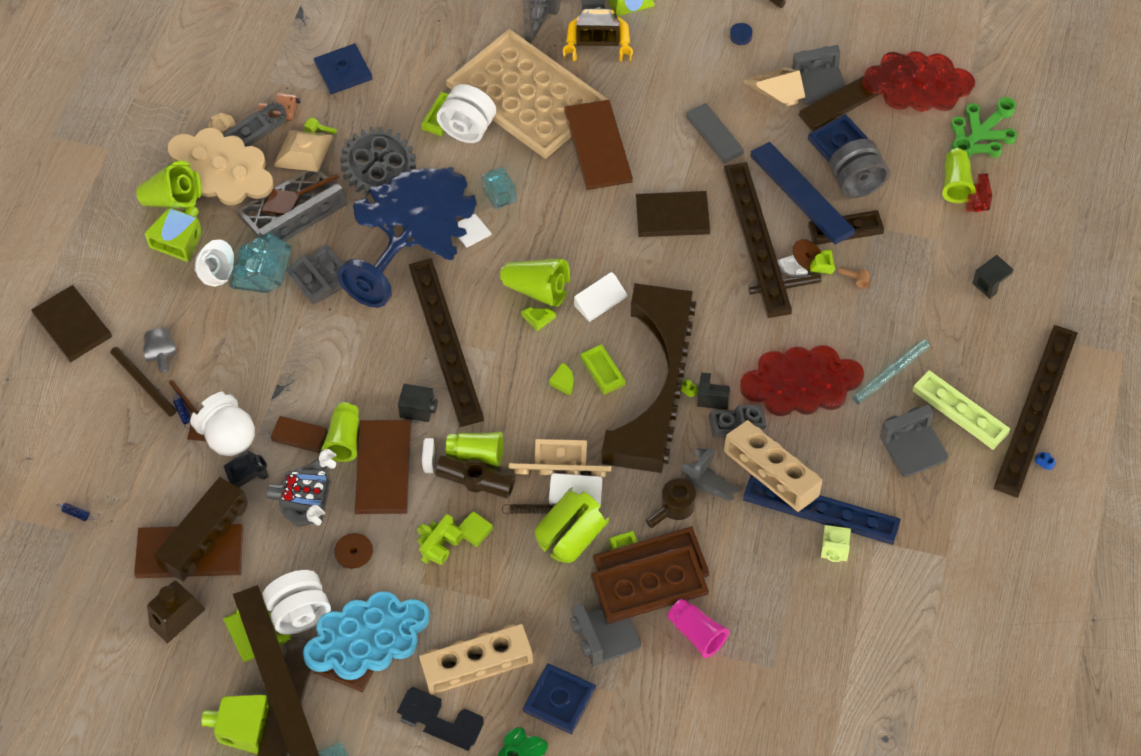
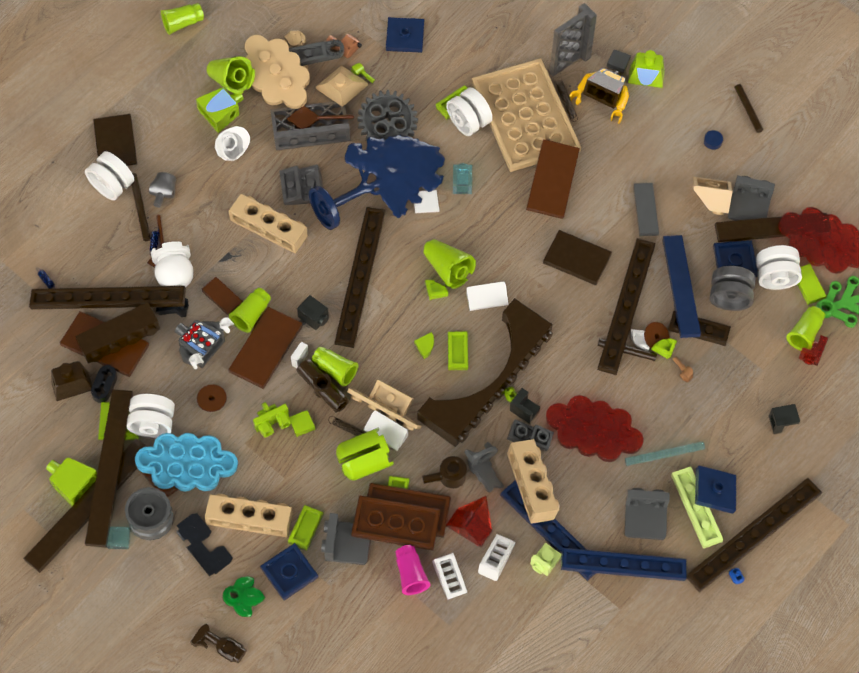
camera: 25 degrees right, 5 degrees up
(73, 156) = (181, 17): none -> lime plant
(90, 360) = (109, 175): none -> white wheel
(163, 497) = (107, 297): none -> dark brown tile
(209, 596) = (107, 385): none -> black beam
(261, 264) = (263, 159): clear light blue slope -> none
(295, 336) = (272, 231): none -> tan brick
(358, 713) = (149, 513): none -> dark grey wheel
(547, 640) = (305, 527): none -> lime tile
(558, 61) = (567, 99): none -> dark brown piece
(731, 541) = (472, 521): none -> clear red slope
(743, 601) = (437, 565): none -> white slope
(786, 582) = (490, 568): none -> white slope
(893, 126) = (778, 267): none -> white wheel
(922, 506) = (623, 564): none -> dark blue tile
(929, 132) = (810, 285): none -> lime tile
(970, 381) = (715, 489): none -> dark blue plate

